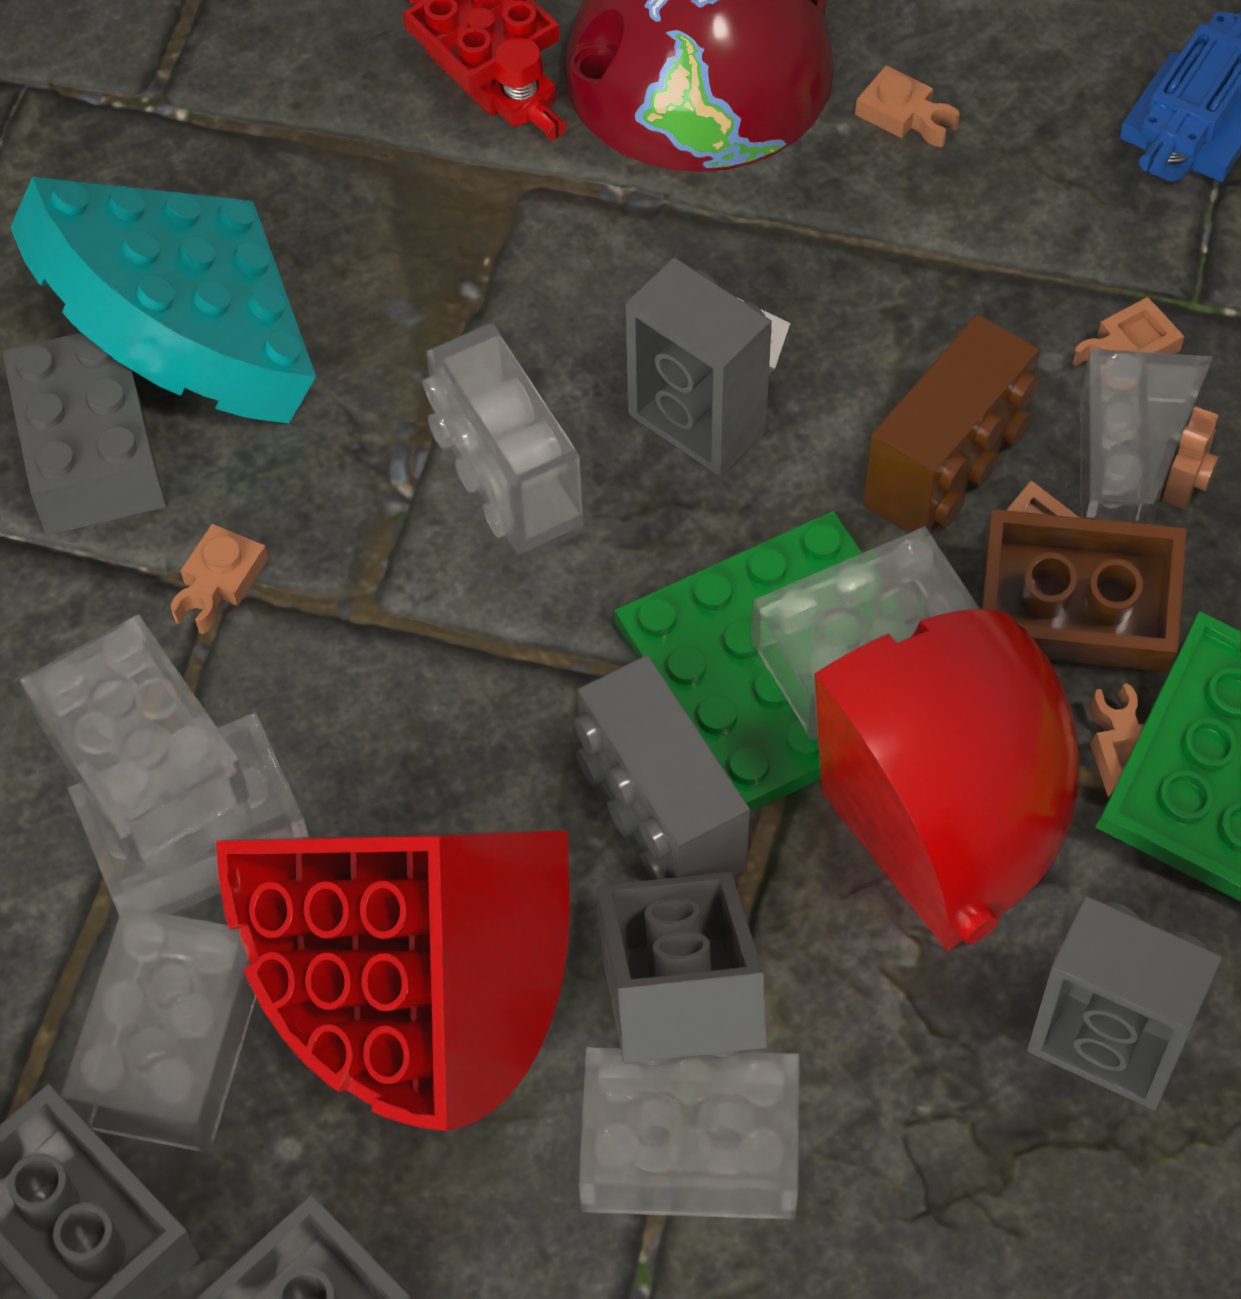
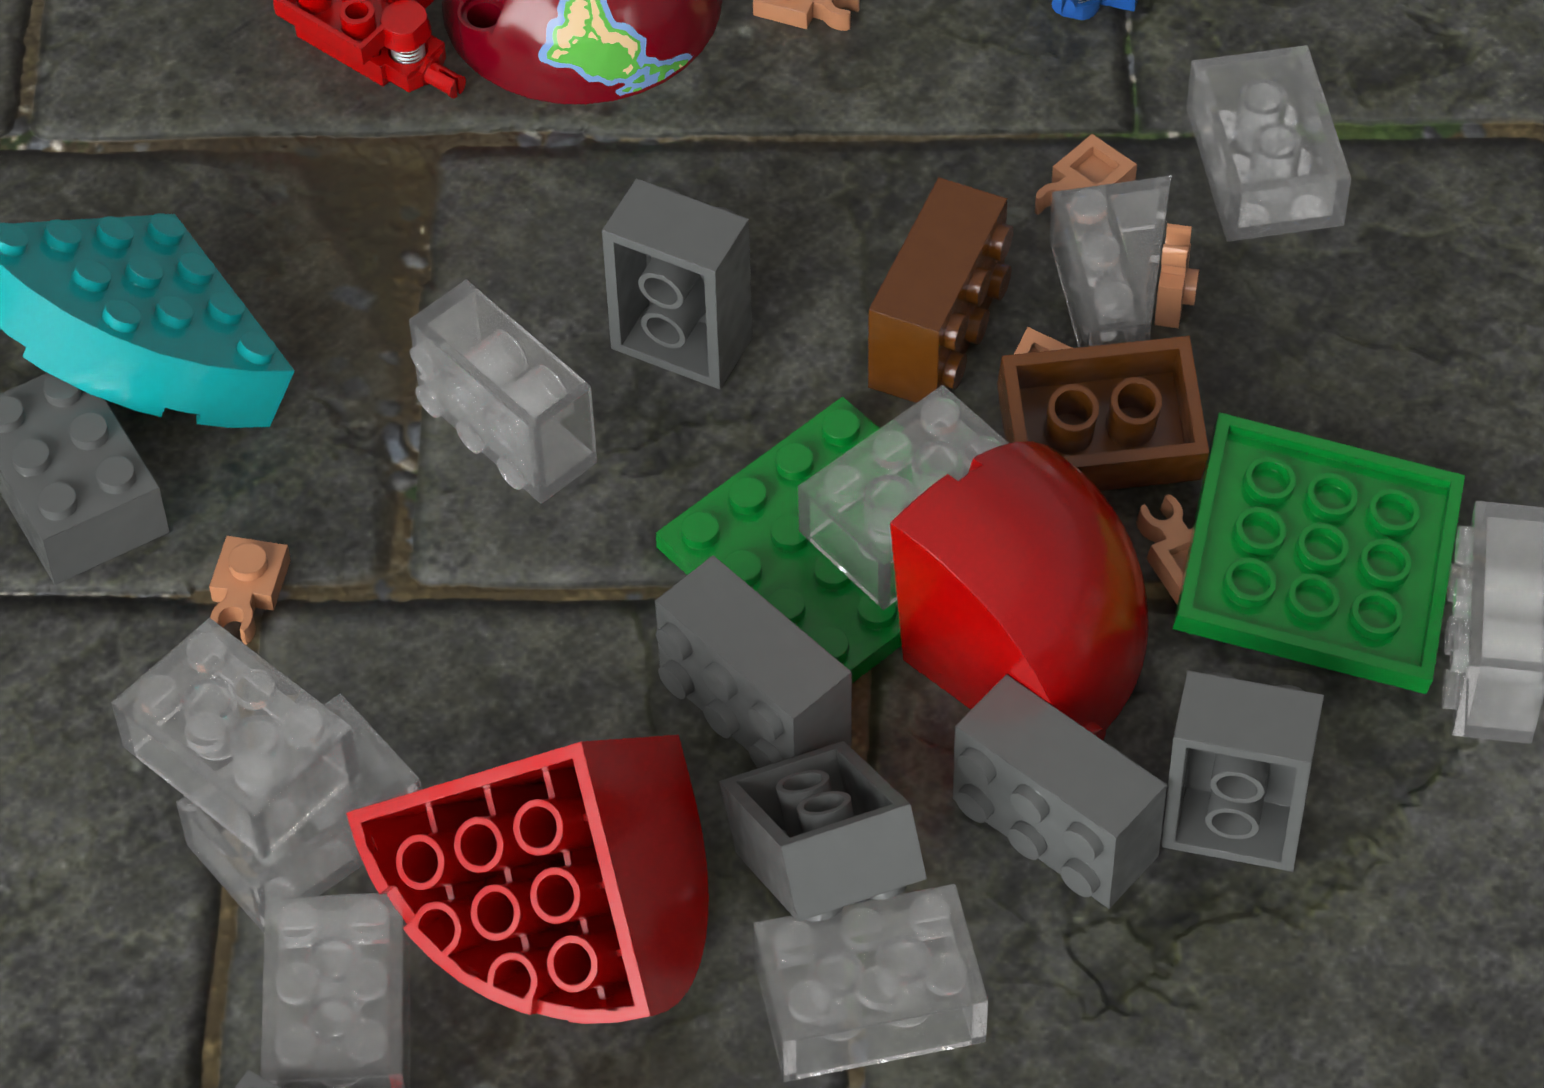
camera: 15 degrees left, 5 degrees down
(930, 977) = (1057, 792): none -> dark grey brick

